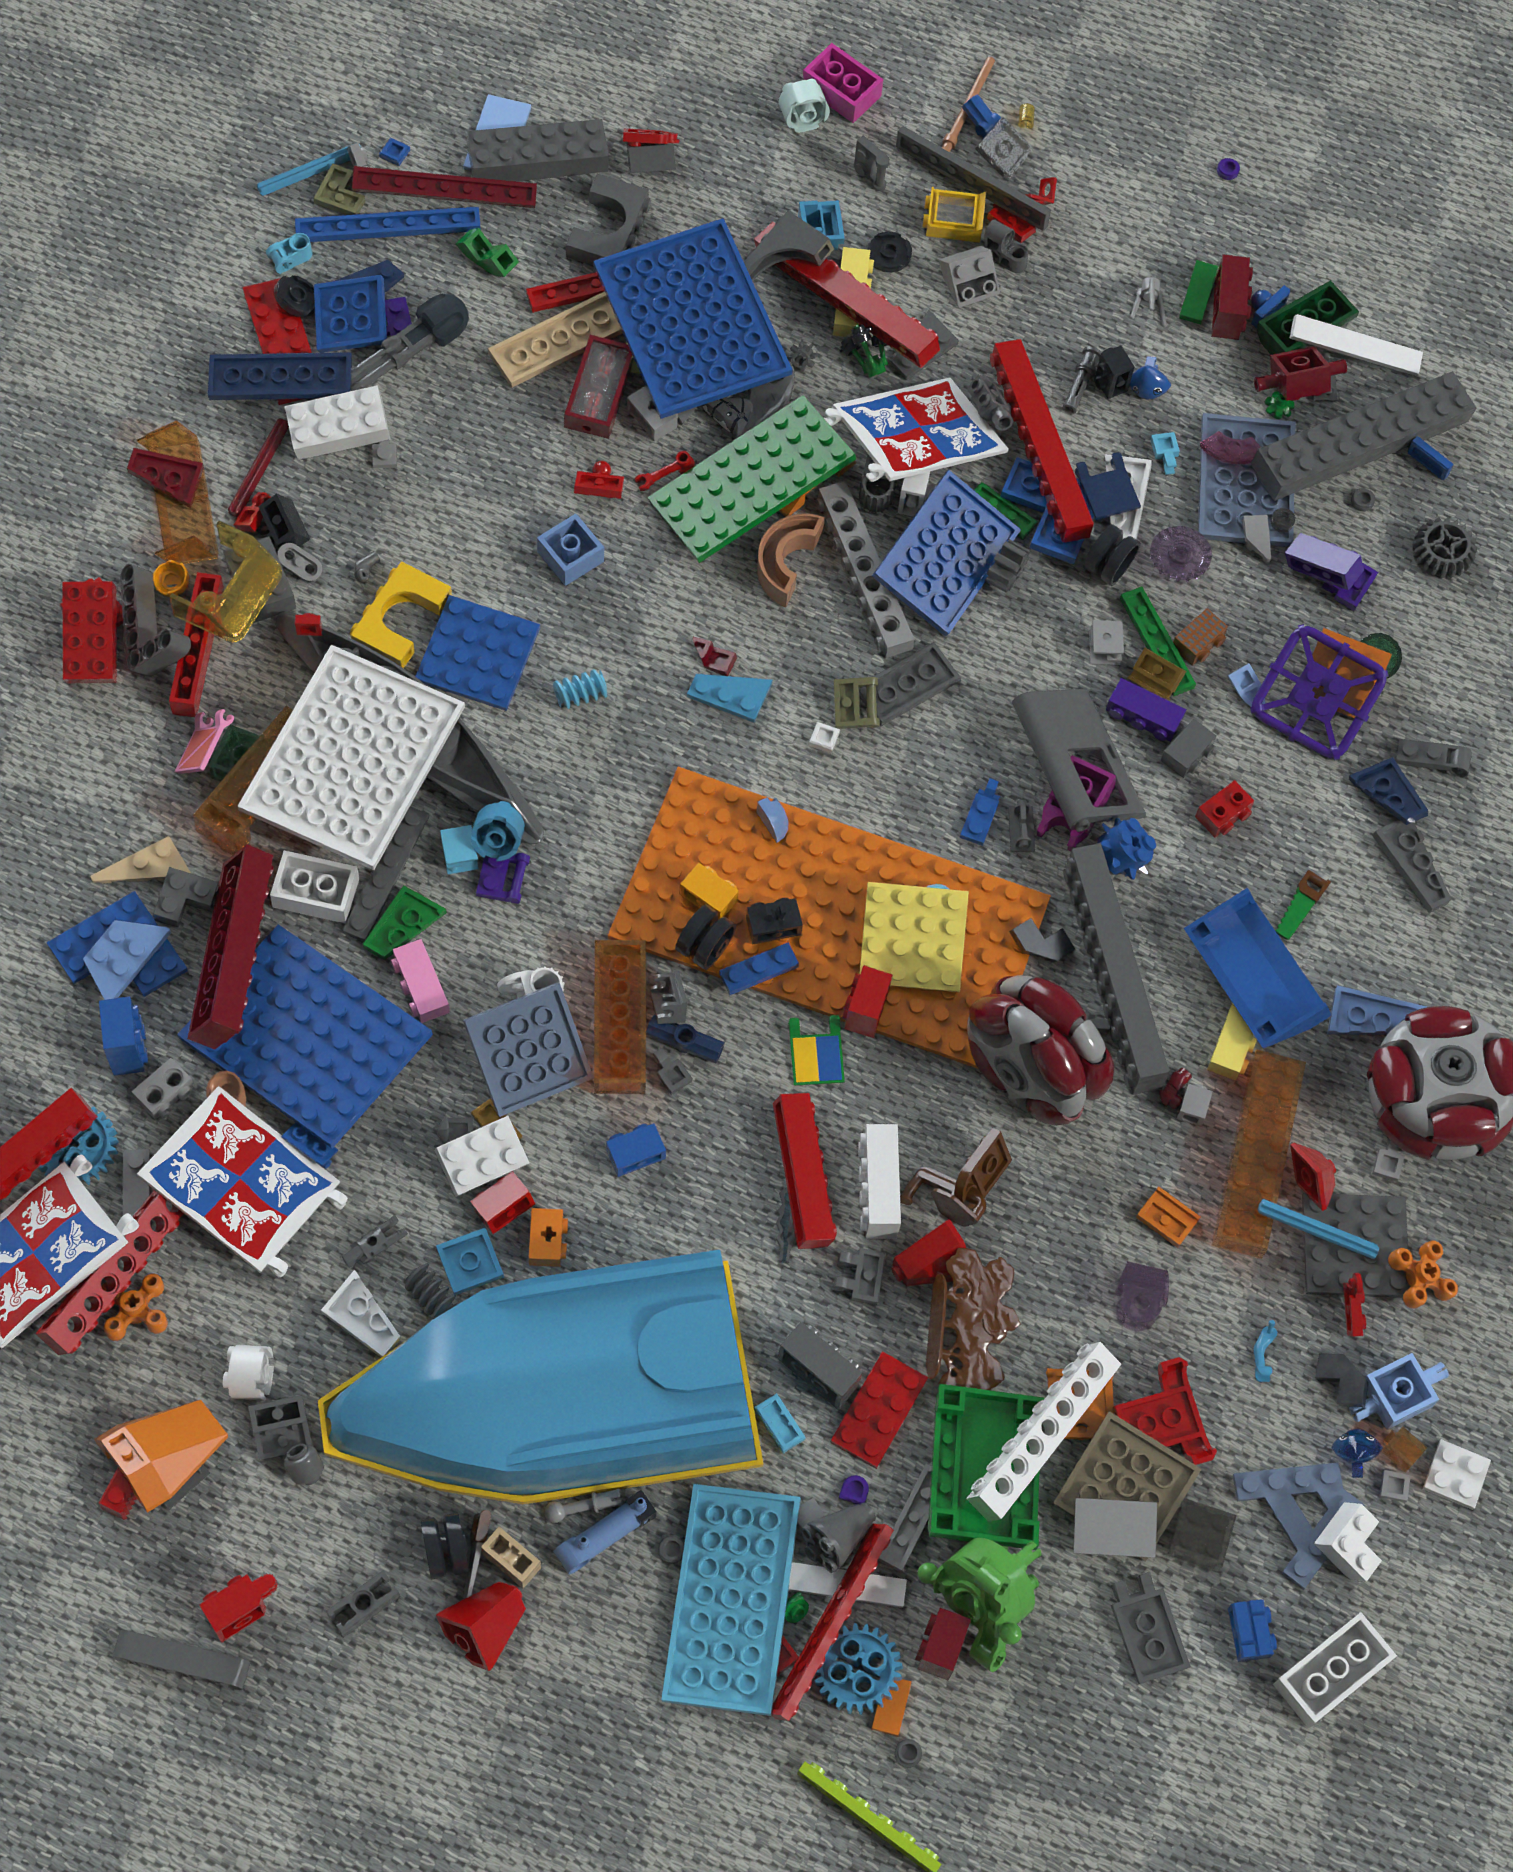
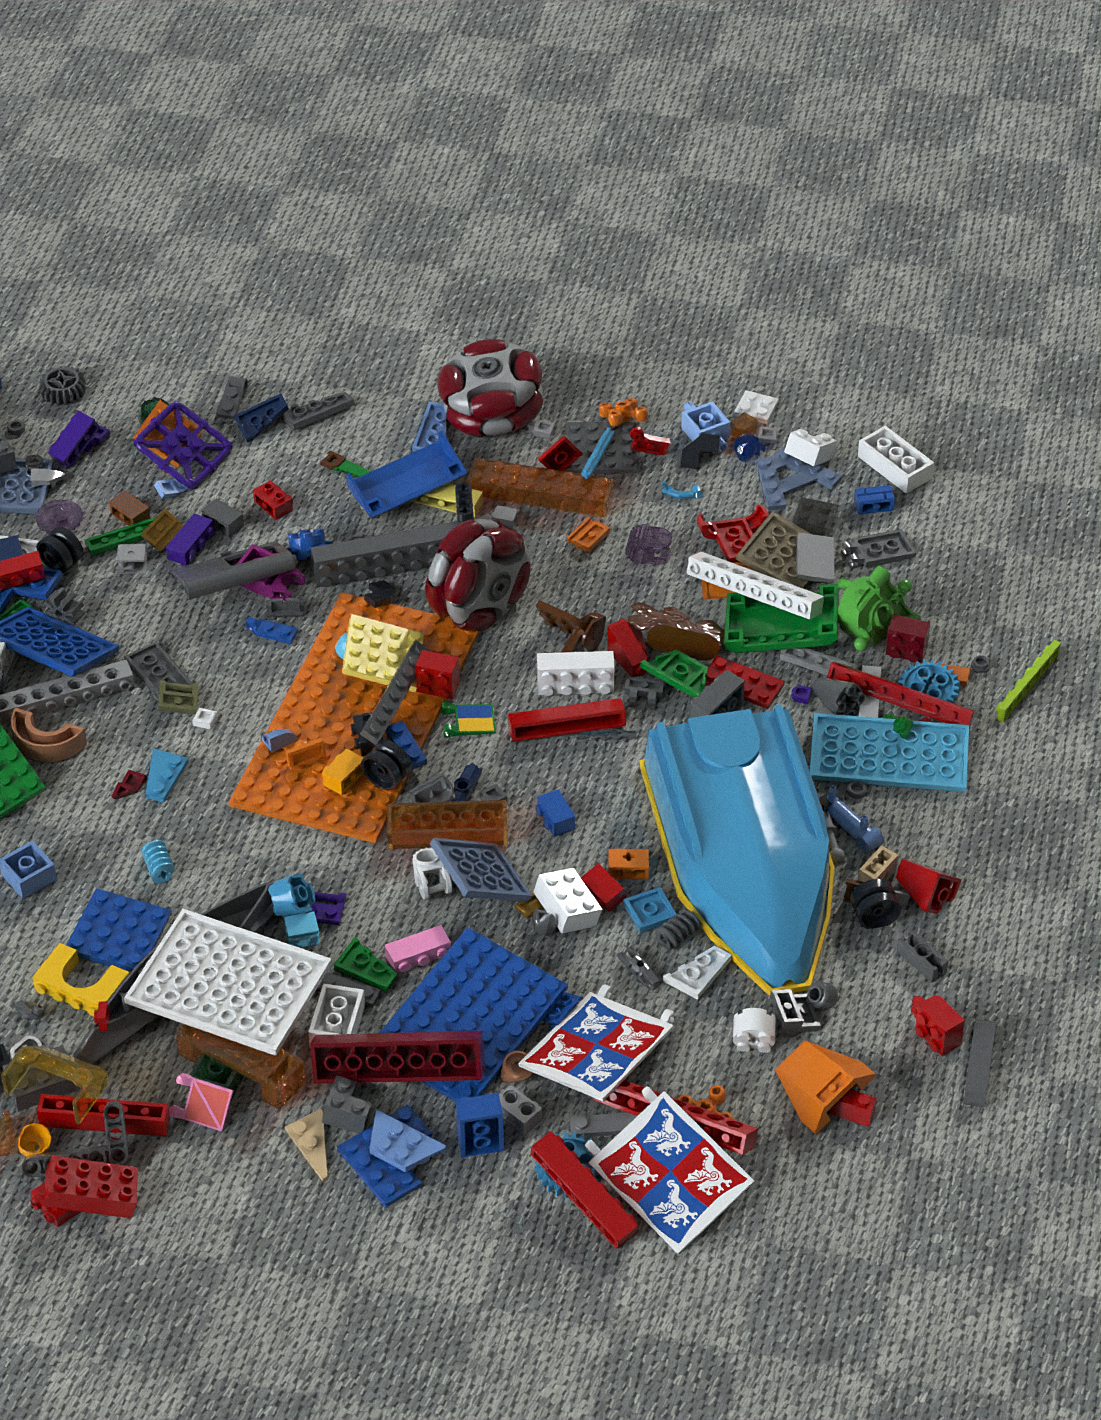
camera: 85 degrees left, 20 degrees down
(744, 846) = (305, 752): none -> orange tile
(764, 1615) = (902, 726): none -> green plate
(827, 945) = (393, 695): none -> dark grey plate
(883, 1321) = (678, 671): none -> green wing
(1198, 1044) = (464, 502): none -> black beam

